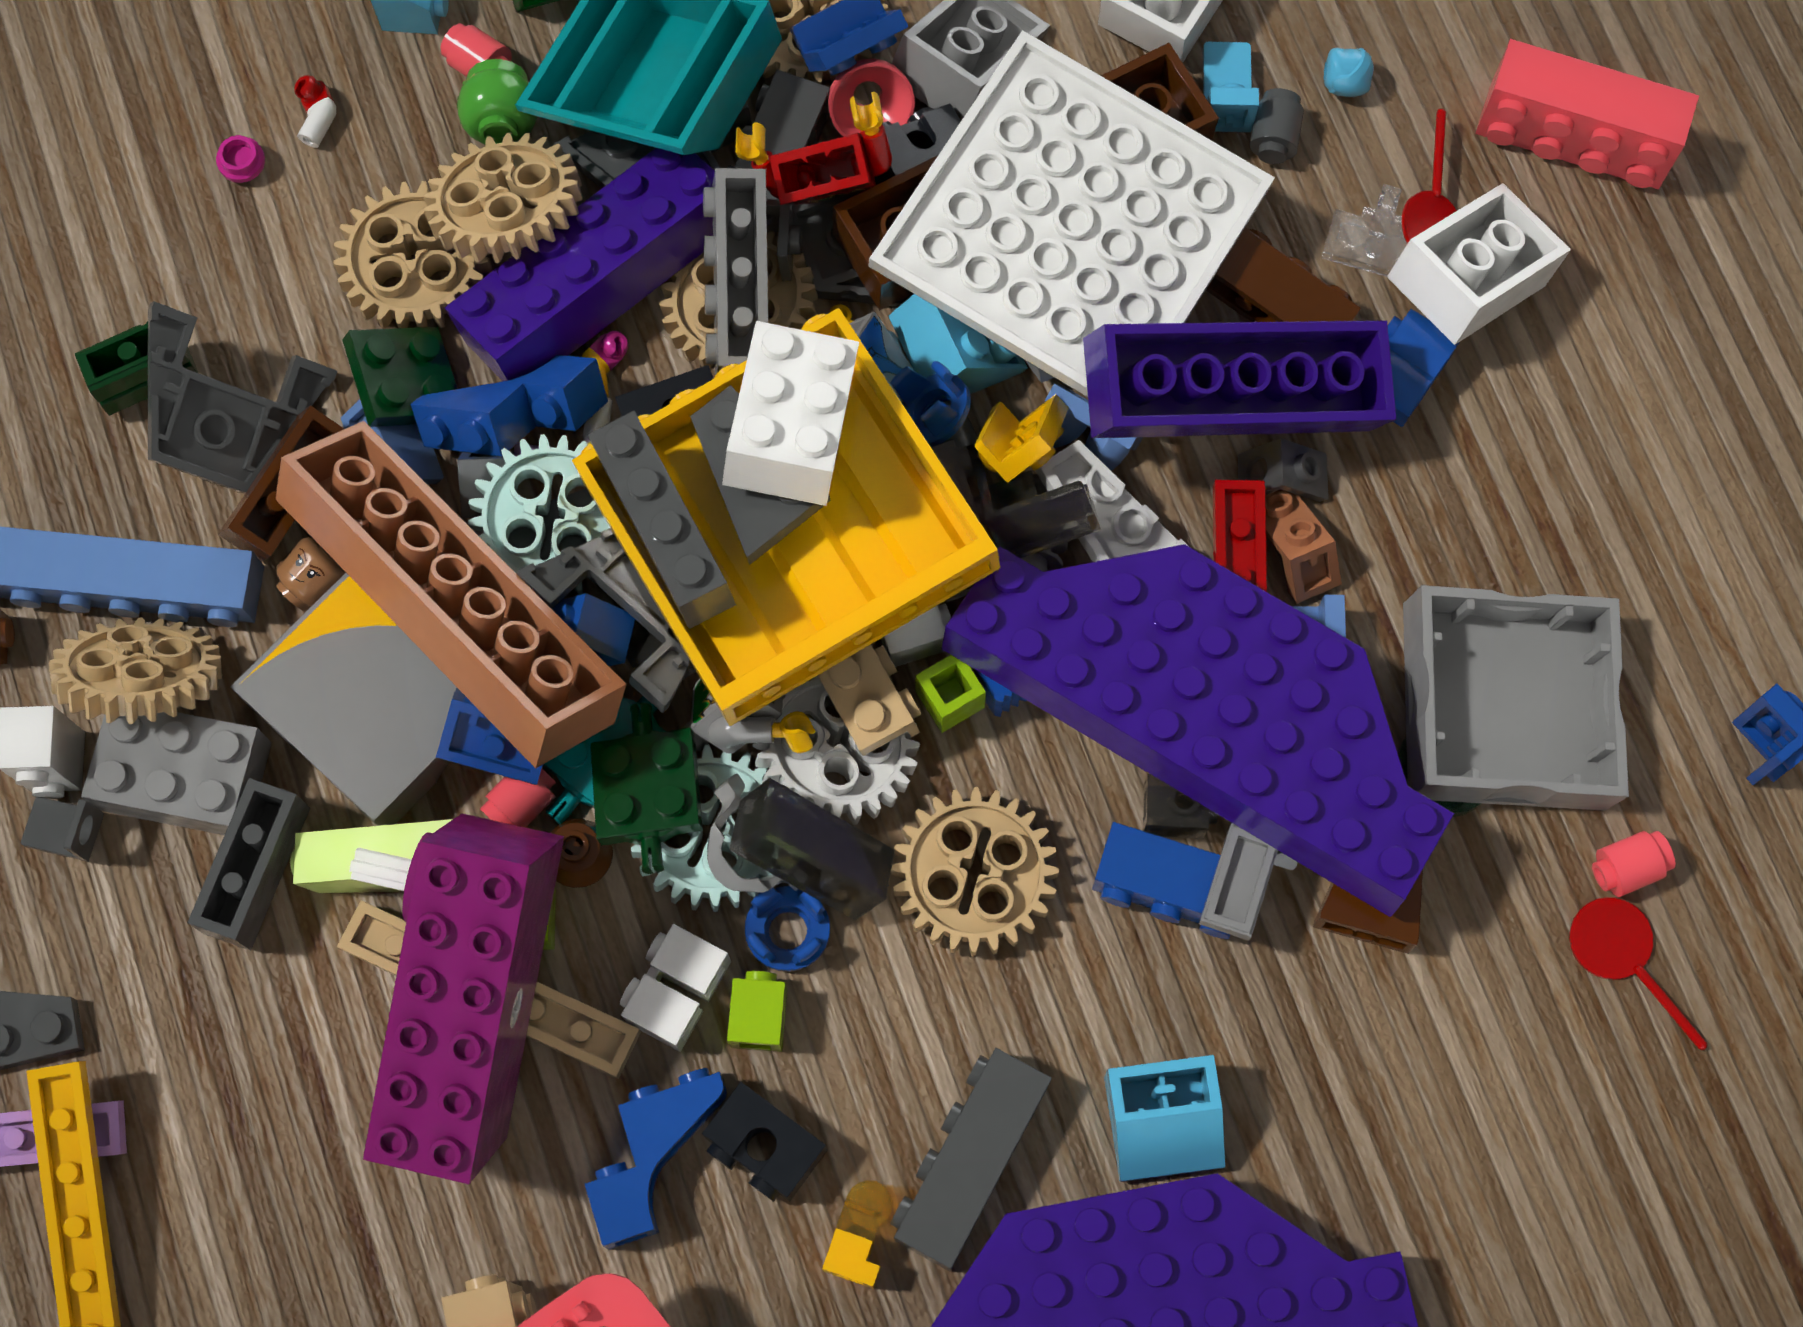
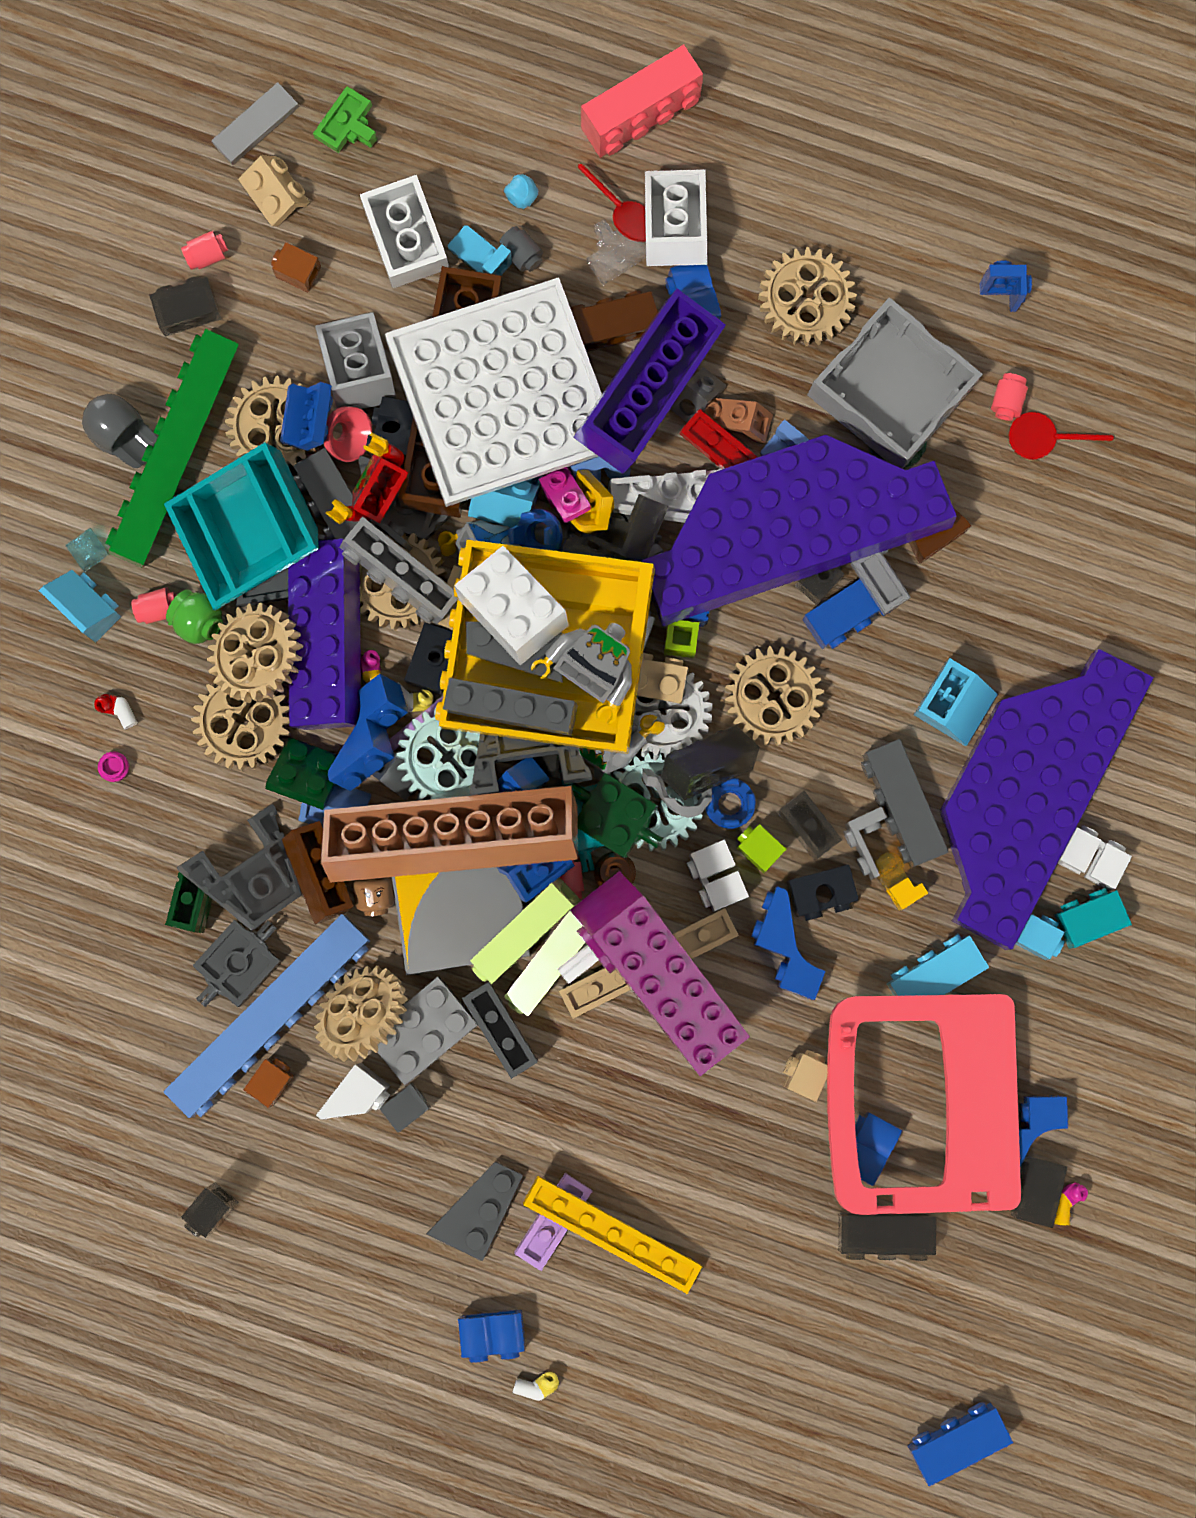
camera: 55 degrees left, 10 degrees up
(97, 482) = (236, 963): none -> dark grey plate
(395, 781) = (524, 931): none -> yellowish green slope
(800, 571) = (593, 662): none -> light grey torso
(836, 1051) = (809, 825): none -> clear smoke brick
(906, 1130) = (868, 823): none -> light grey bracket
(1011, 400) = (564, 494): none -> dark pink bracket
(1528, 546) = (826, 314): none -> tan gear

